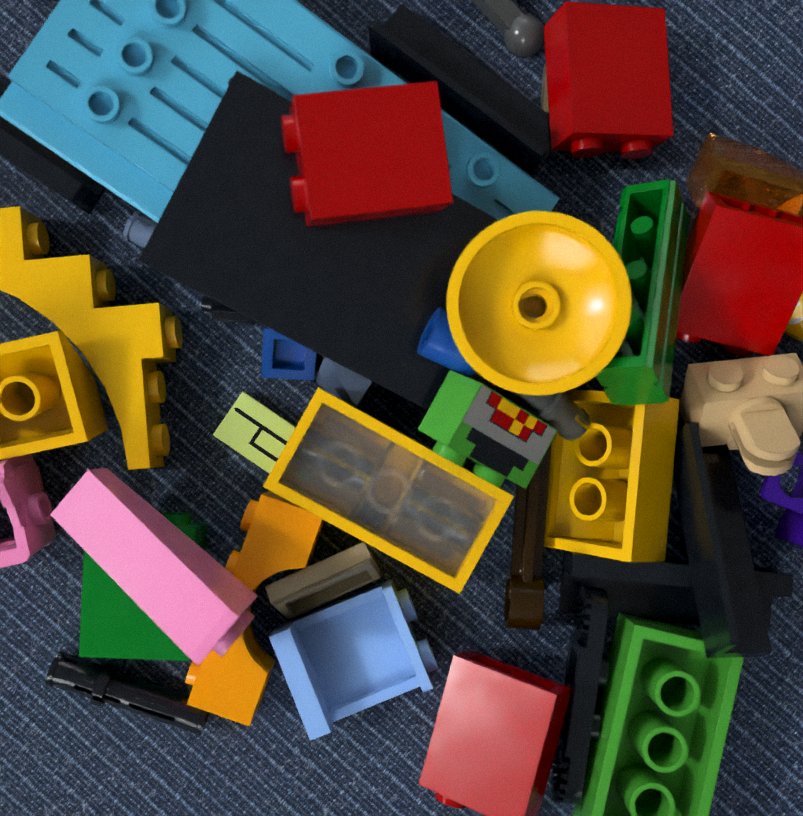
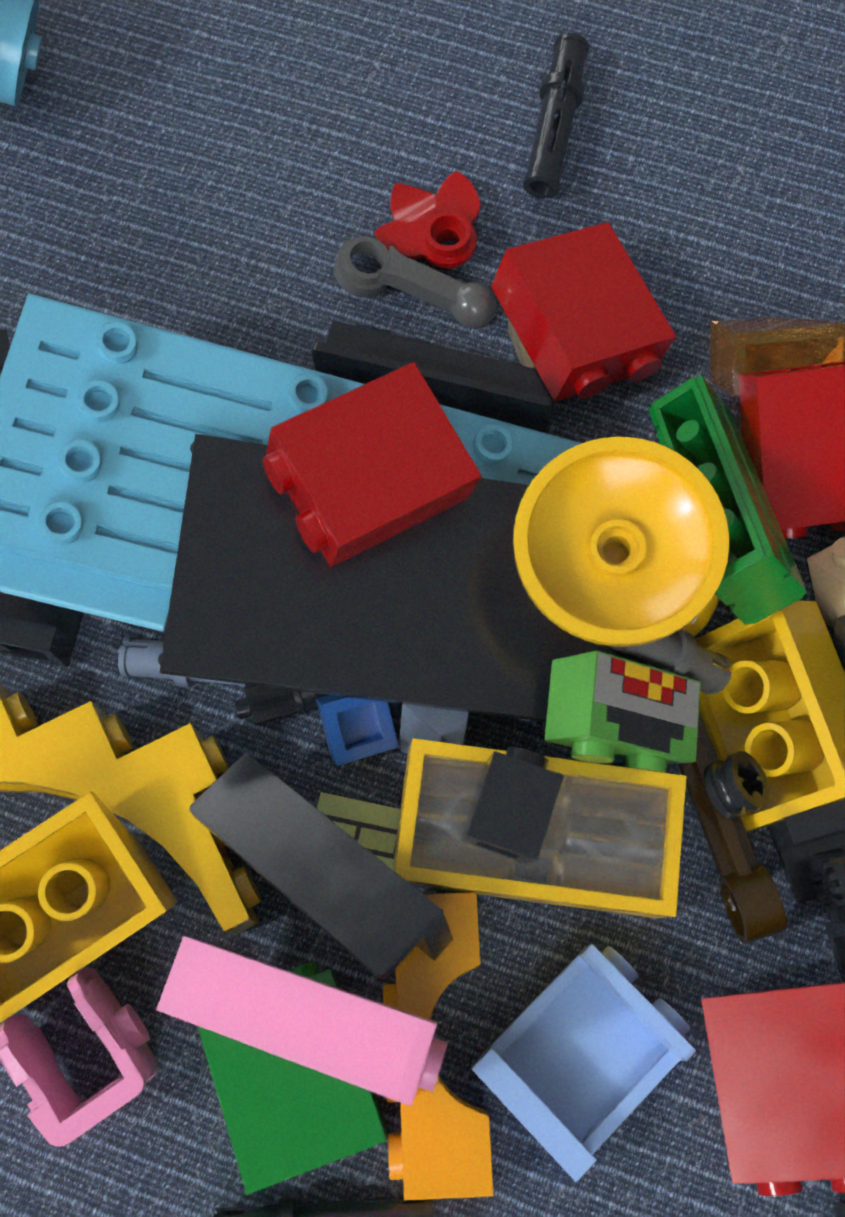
camera: 15 degrees left, 15 degrees down
(208, 455) = (321, 868): none -> black panel
(324, 581) = (508, 976): dark tan tile -> none
(369, 472) = (513, 805): none -> black brick
(440, 347) = (533, 635): blue gear -> none
(550, 515) = (736, 785): none -> black bush

